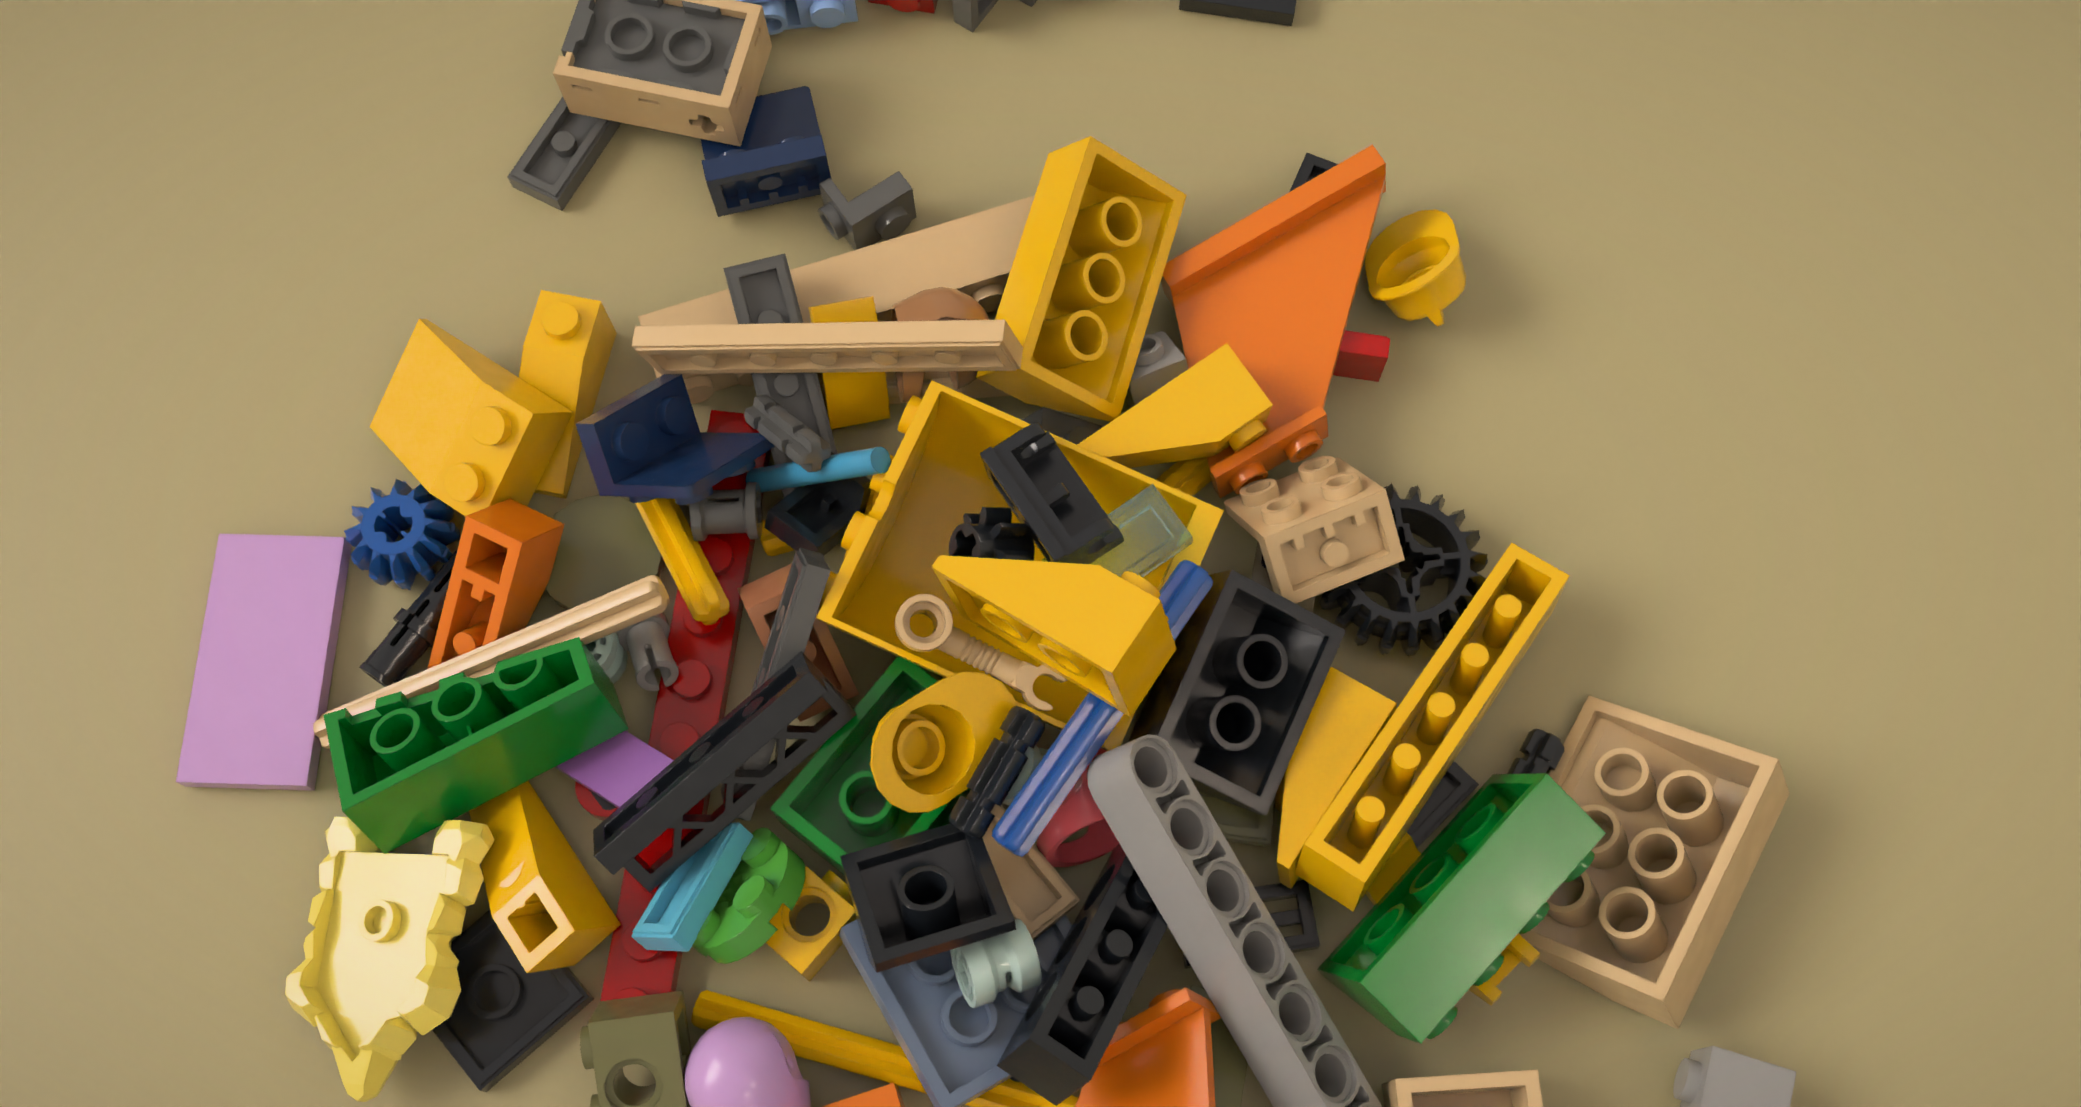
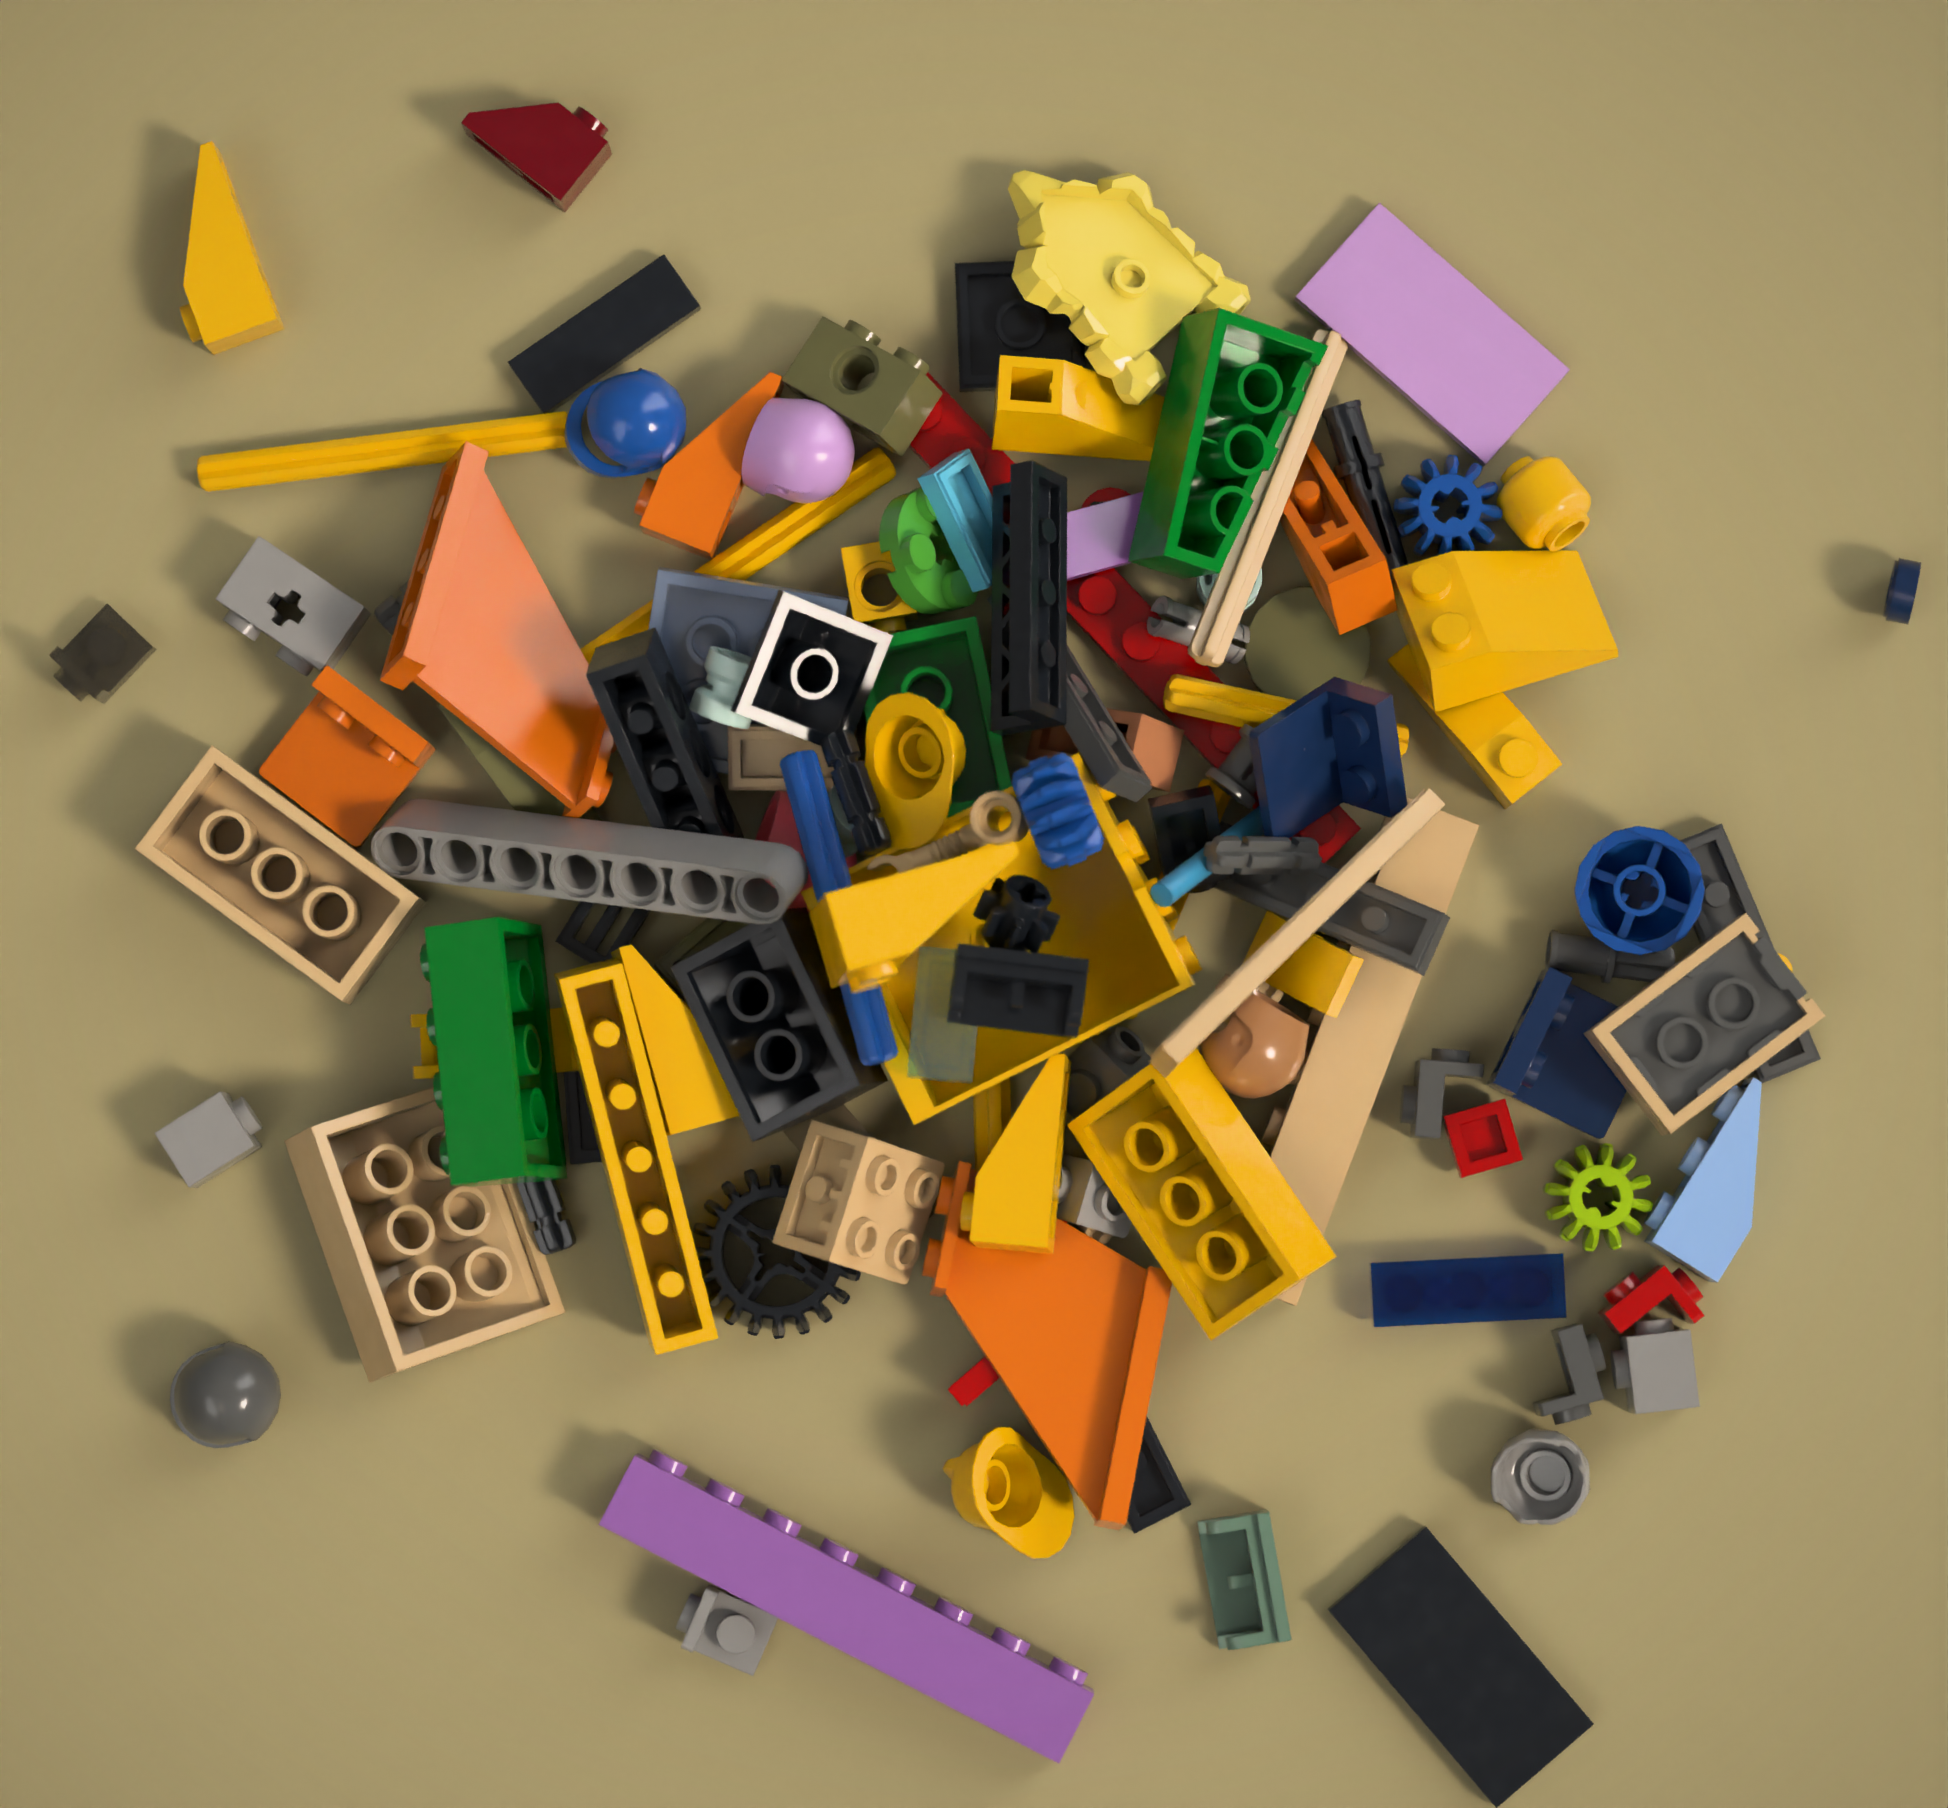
camera: 130 degrees right, 15 degrees up
(229, 181) = (1902, 591): none -> dark blue tile
(342, 468) = (1543, 502): none -> yellow head
(597, 171) = (1639, 890): none -> blue cylinder
(671, 179) = (1594, 957): none -> dark grey axle
(852, 56) = (1604, 1177): none -> lime gear
(873, 156) = (1482, 1138): none -> red plate
(876, 578) = (1057, 810): none -> blue gear
(993, 91) = (1467, 1290): none -> clear blue plate
(1324, 78) = (1244, 1580): none -> sand green hinge
(1602, 324) = (848, 1606): none -> medium lavender brick
(1694, 388) = (726, 1629): none -> light grey bracket
(1911, 899) = (225, 1395): none -> dark grey helmet

